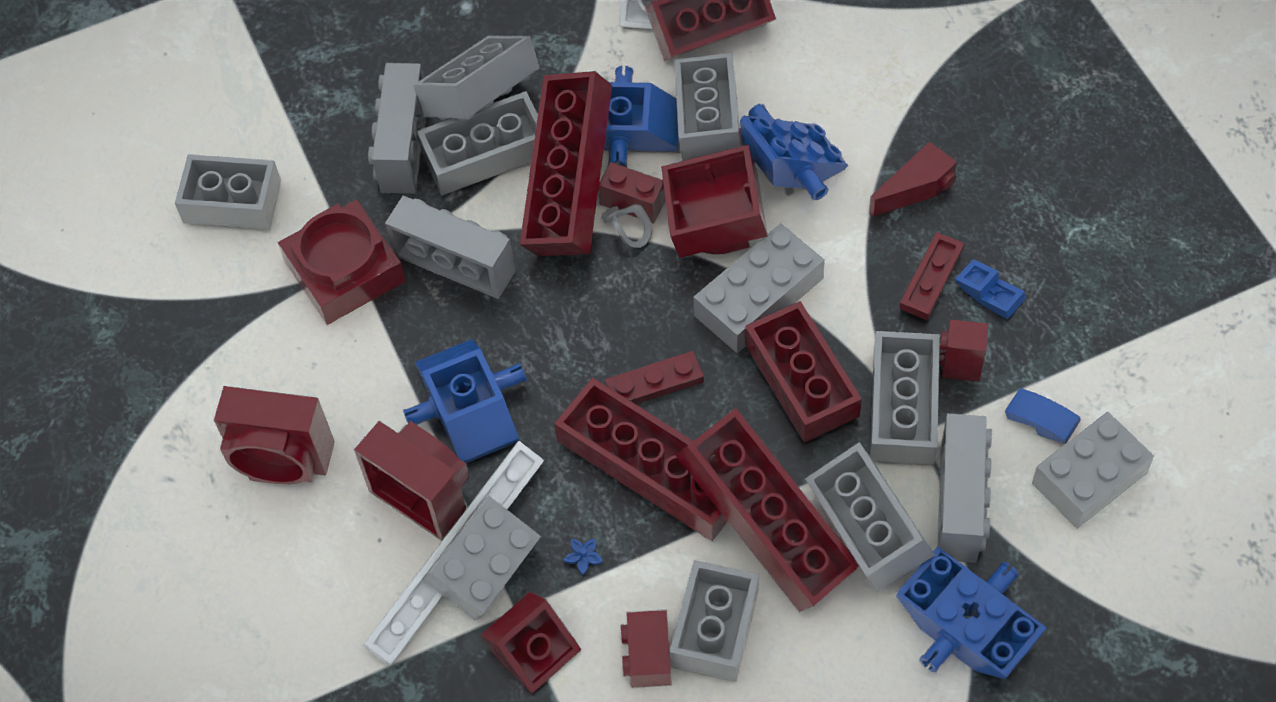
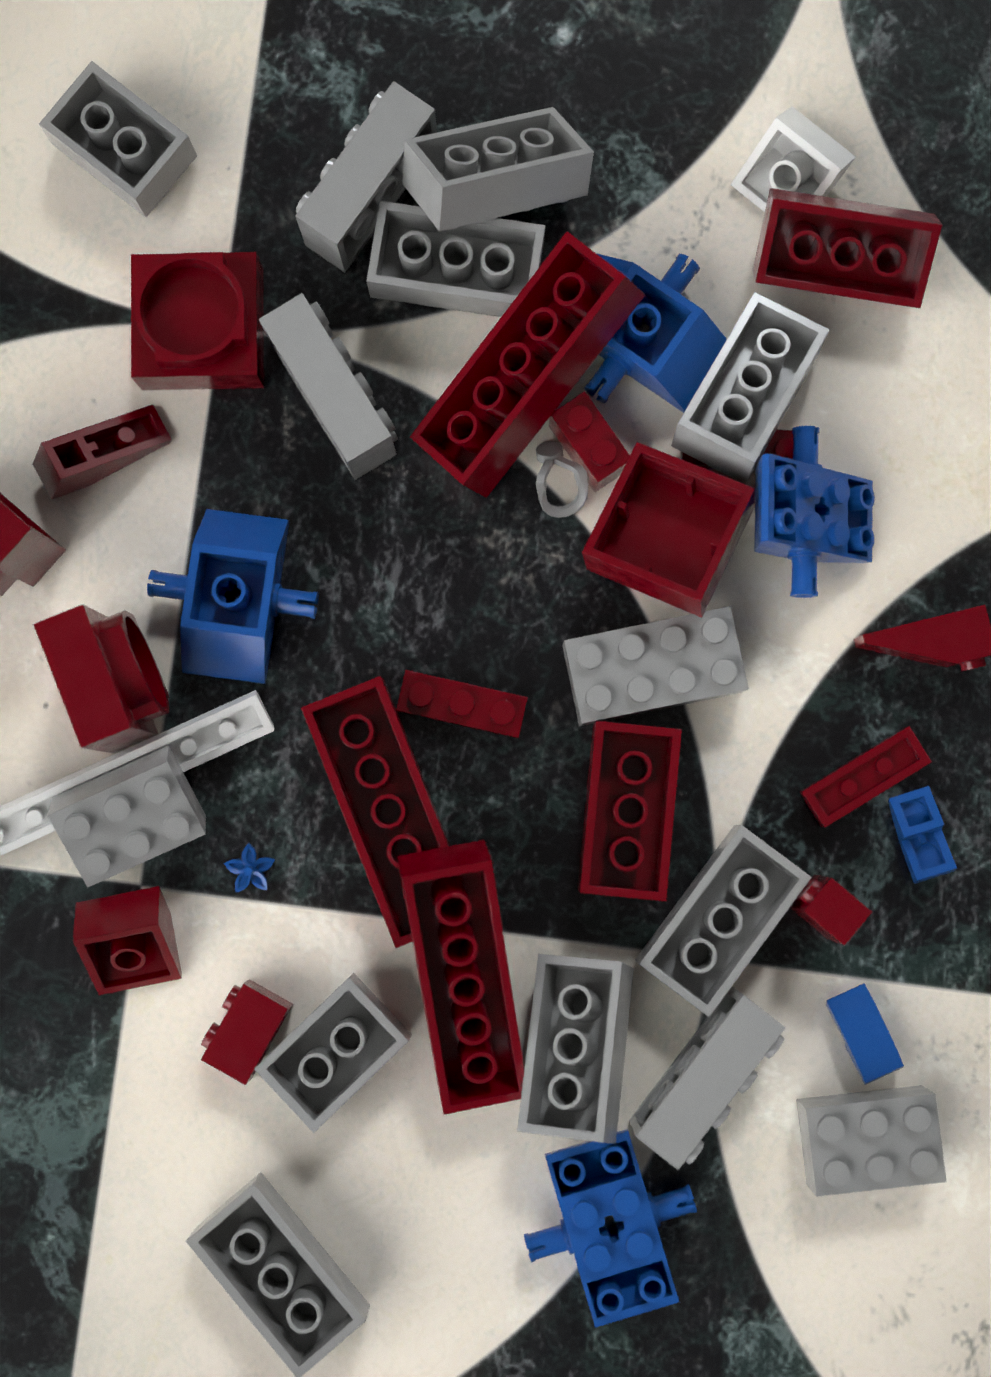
camera: 30 degrees right, 25 degrees up
(323, 365) = (98, 450): none -> dark red slope

